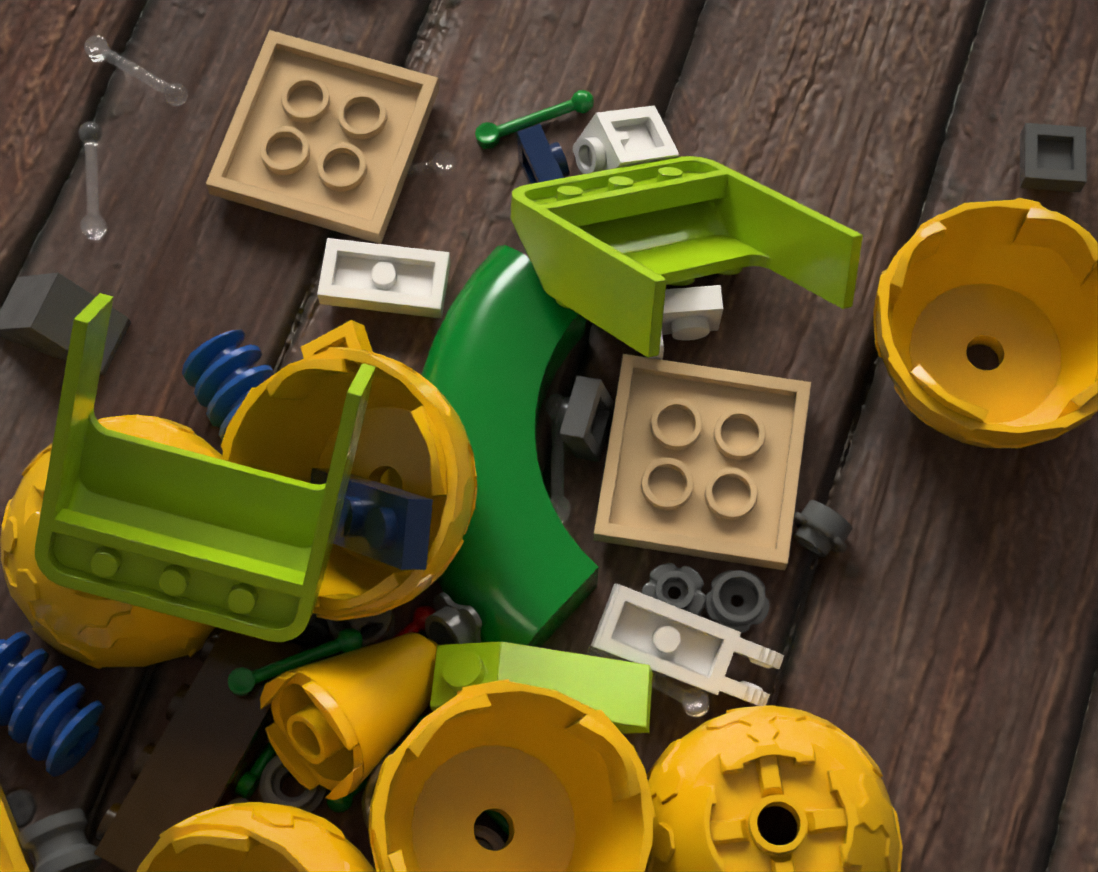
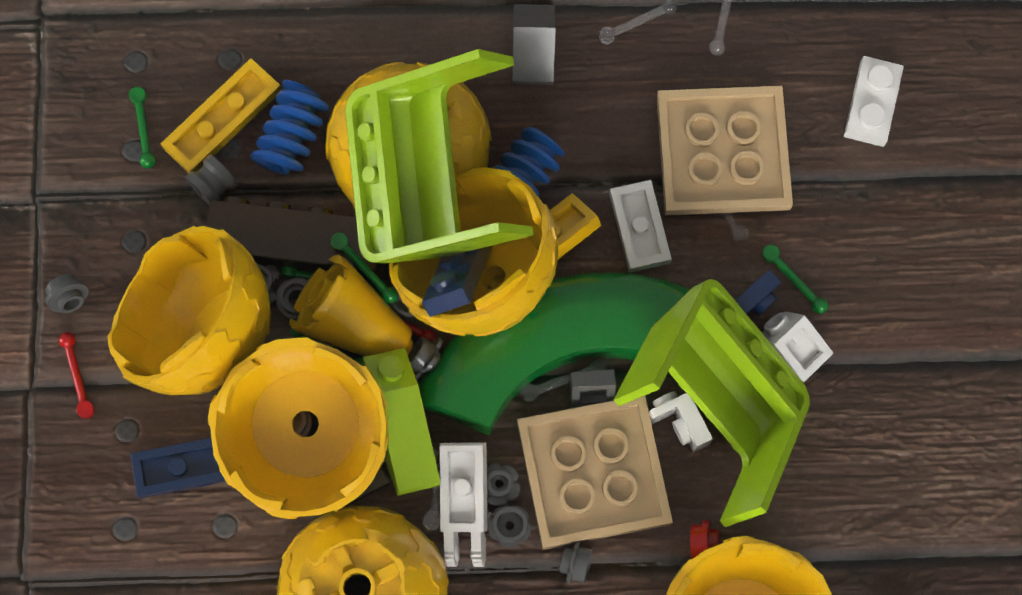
camera: 65 degrees right, 5 degrees up
(849, 354) = (703, 537): none -> red plate

